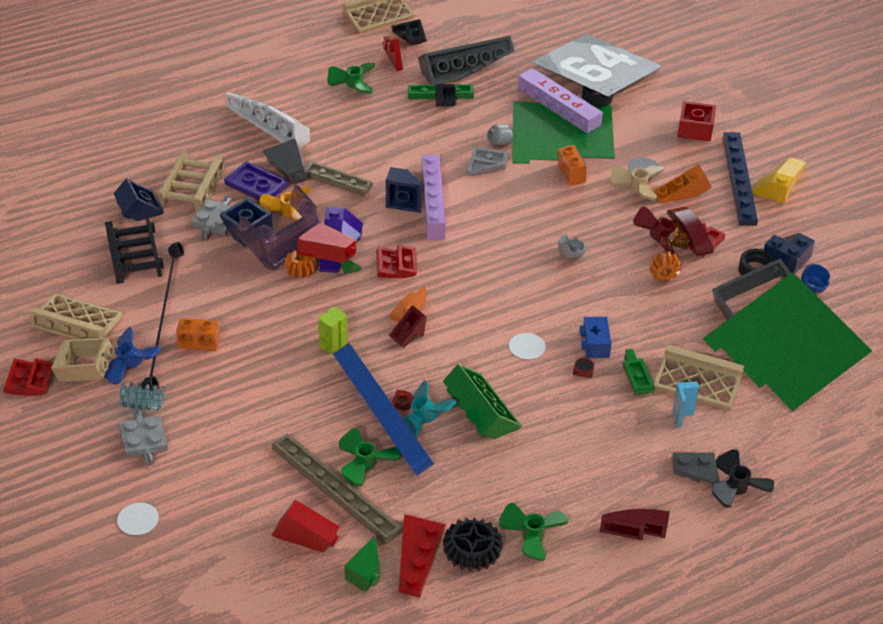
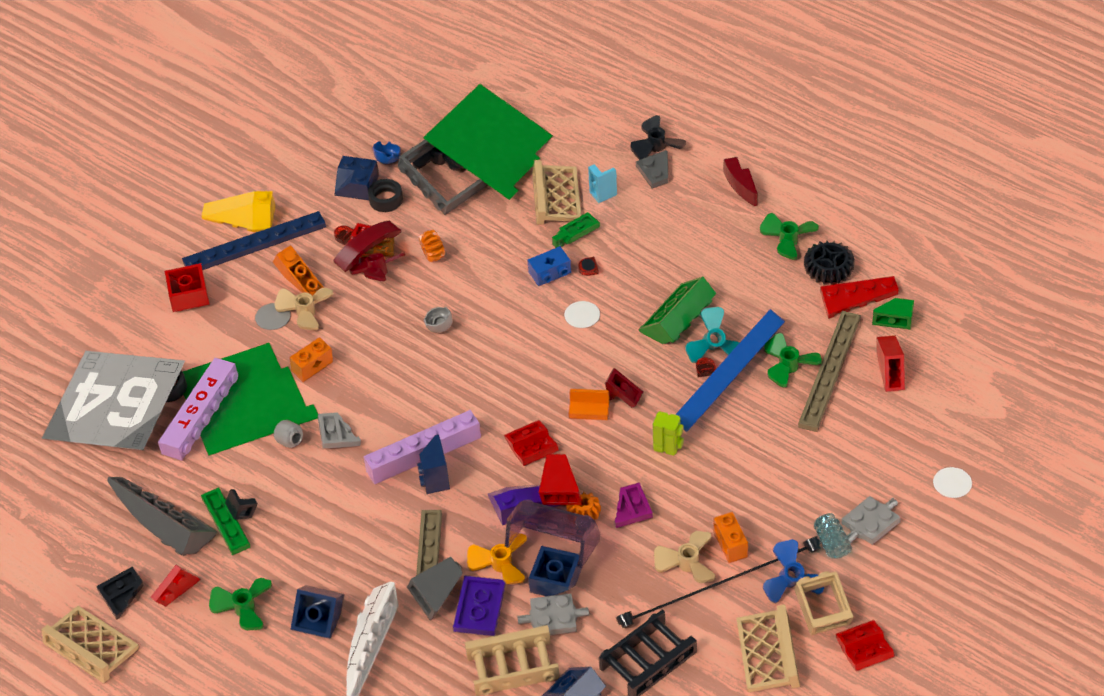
camera: 110 degrees left, 5 degrees up
(198, 303) = (668, 558): none -> tan piece
(282, 293) = (632, 506): none -> magenta wing
(320, 106) = (316, 611): none -> dark blue slope
(722, 227) = (343, 234): none -> clear red tile

